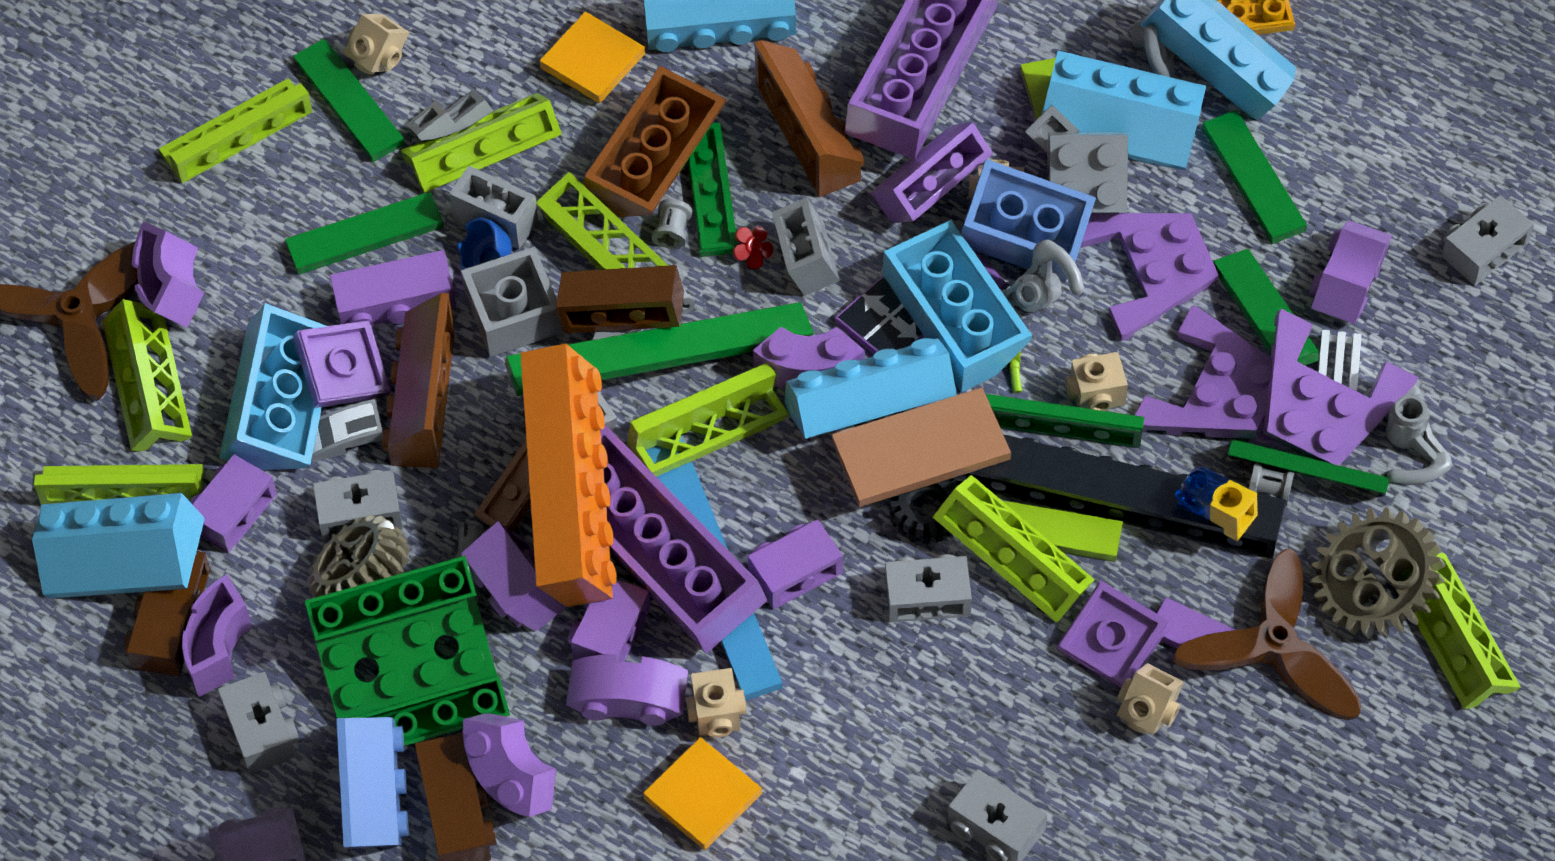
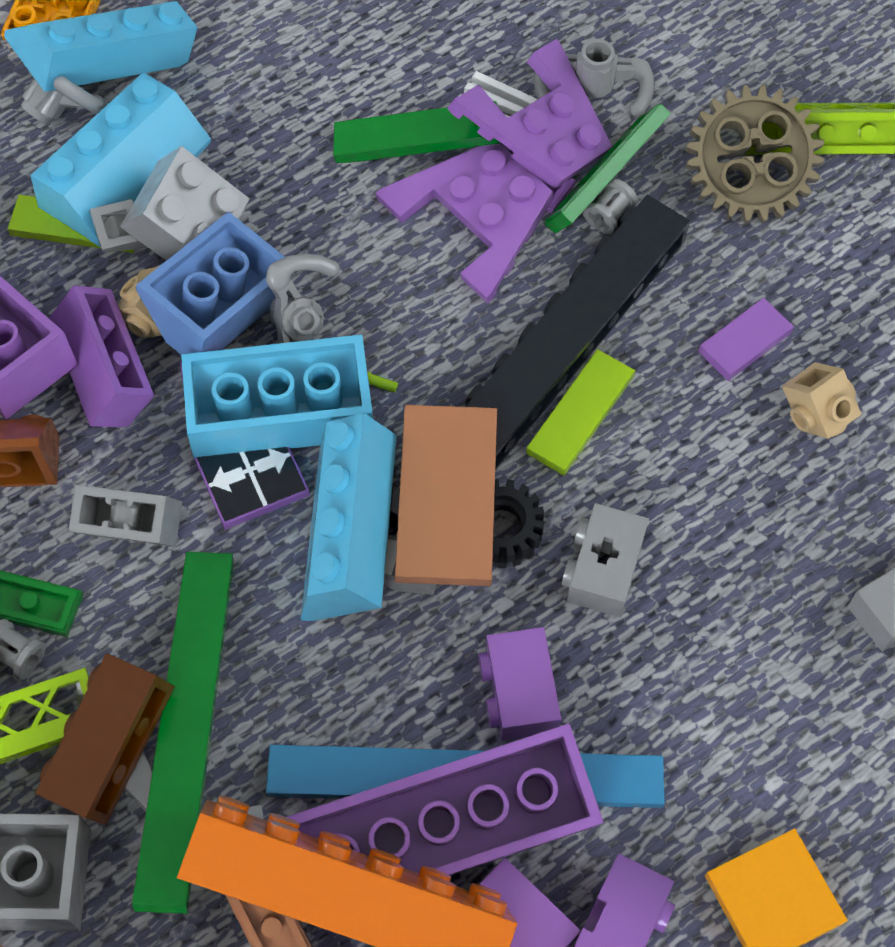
camera: 70 degrees left, 5 degrees up
(702, 408) = (282, 709): lime fence -> none
(715, 703) = (660, 849): tan brick -> none
(752, 246) = (87, 575): red plant -> none
(794, 353) = (273, 571): medium lavender brick -> none
(1013, 548) = (597, 456): lime fence -> none
(1067, 421) = (465, 345): green tile -> none
(1097, 382) = (432, 305): tan brick -> none
(1113, 635) = (727, 408): medium lavender tile -> none
(1165, 257) = (314, 196): medium lavender wing -> none
(1218, 501) = (636, 244): leg -> none
(1254, 177) = (255, 86): green tile -> none
(1277, 645) = (792, 273): reddish brown piece -> none
(1350, 271) = (407, 48): medium lavender brick -> none

